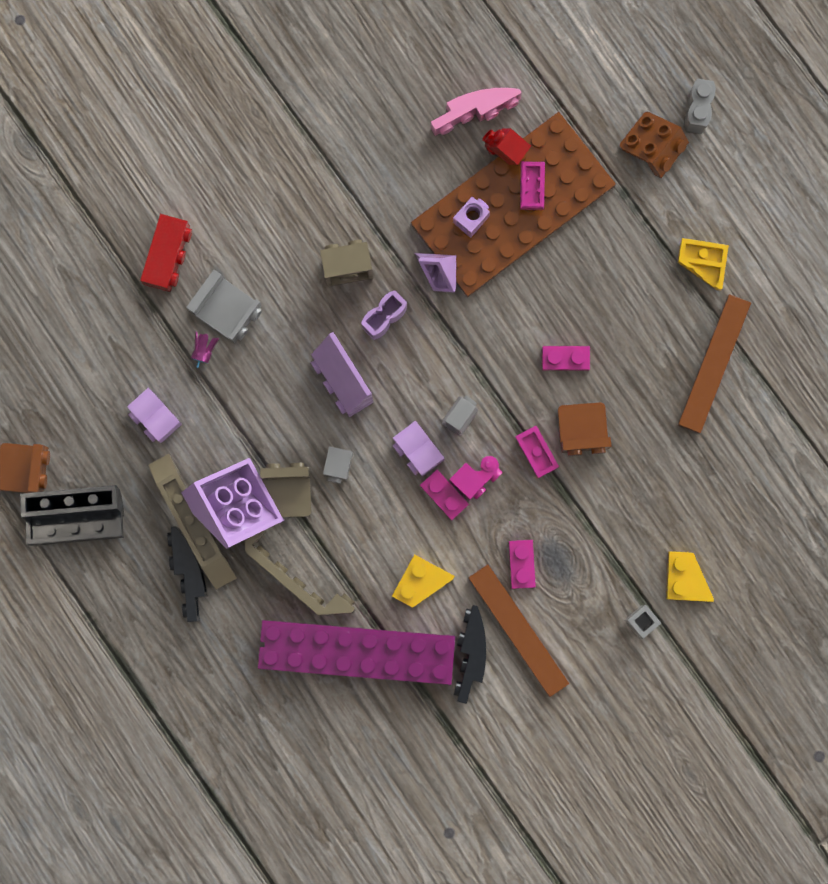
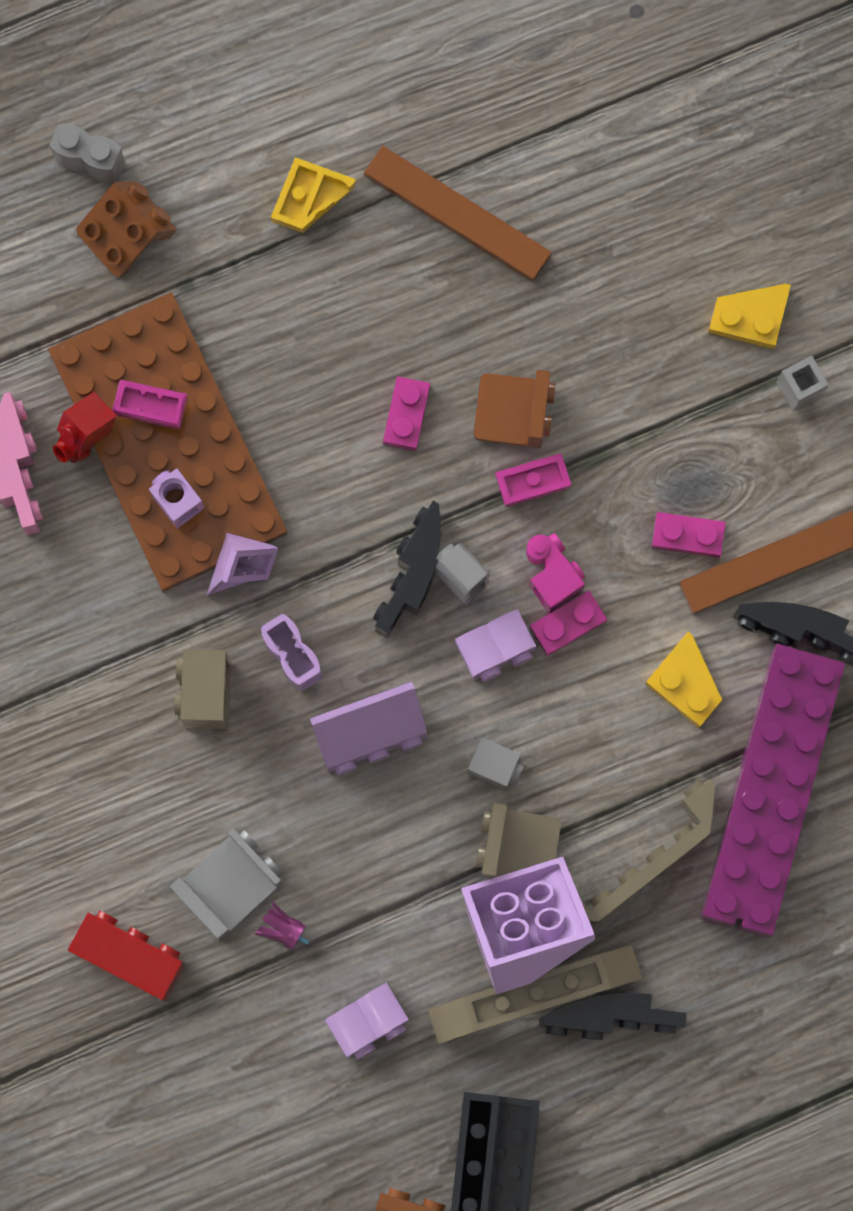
camera: 80 degrees left, 5 degrees down
(468, 384) = (419, 560): none -> black slope

